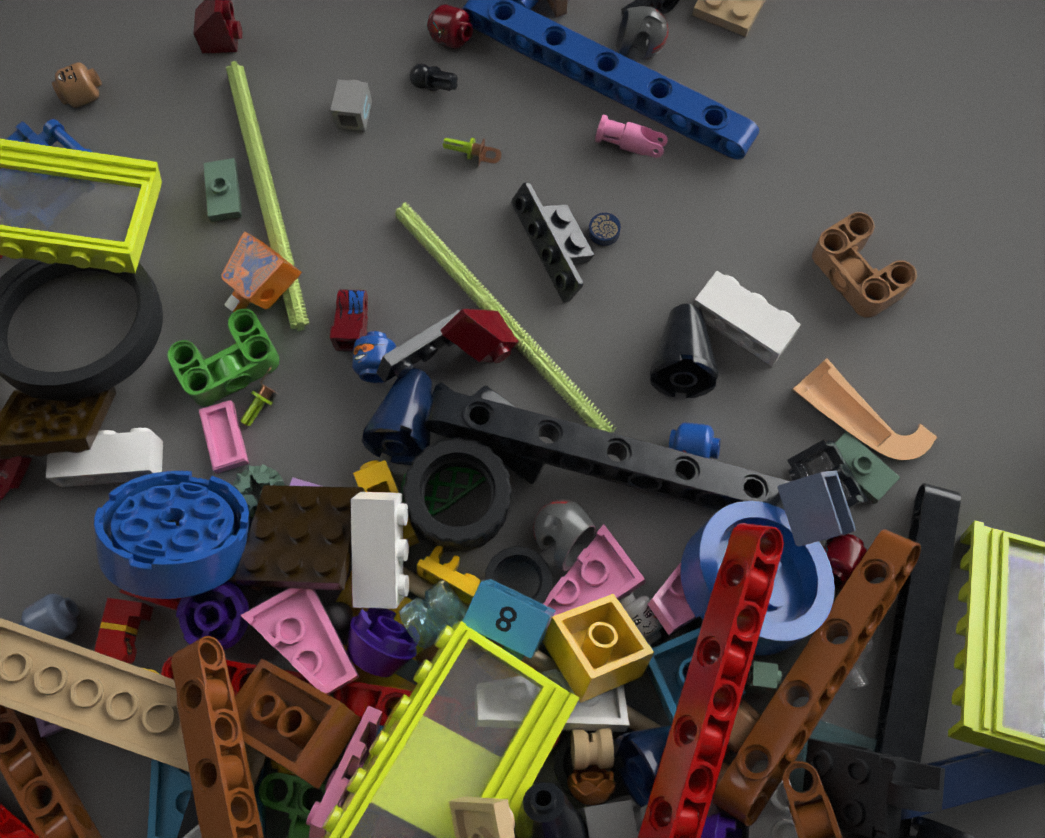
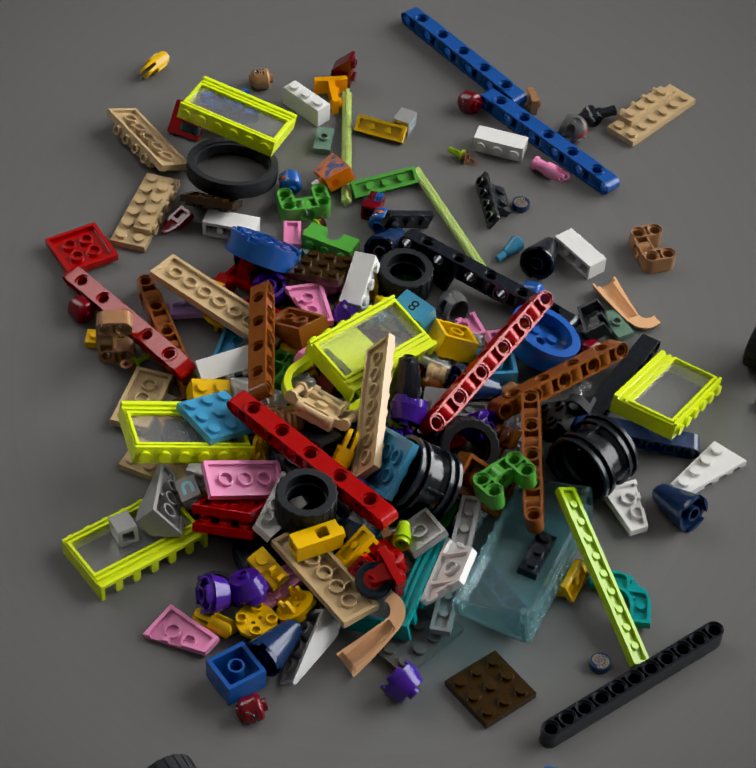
camera: 10 degrees right, 25 degrees down
(169, 117) = (306, 103): none -> white brick
(187, 315) = (290, 179): none -> blue head
(206, 62) = (333, 87): none -> light orange bracket
(314, 134) = (380, 128): none -> yellow plate
(325, 451) = (316, 239): none -> bright green arch
(354, 260) = (384, 182): none -> bright green plate
(432, 78) = (452, 121): black axle -> none
(481, 335) = (438, 221): dark red slope -> none
(529, 104) = (500, 143): none -> white brick
(622, 340) = (513, 246): none -> dark azure cone
(762, 677) = (528, 370): sand green piece -> none
(816, 508) = (583, 317): sand blue piece -> none

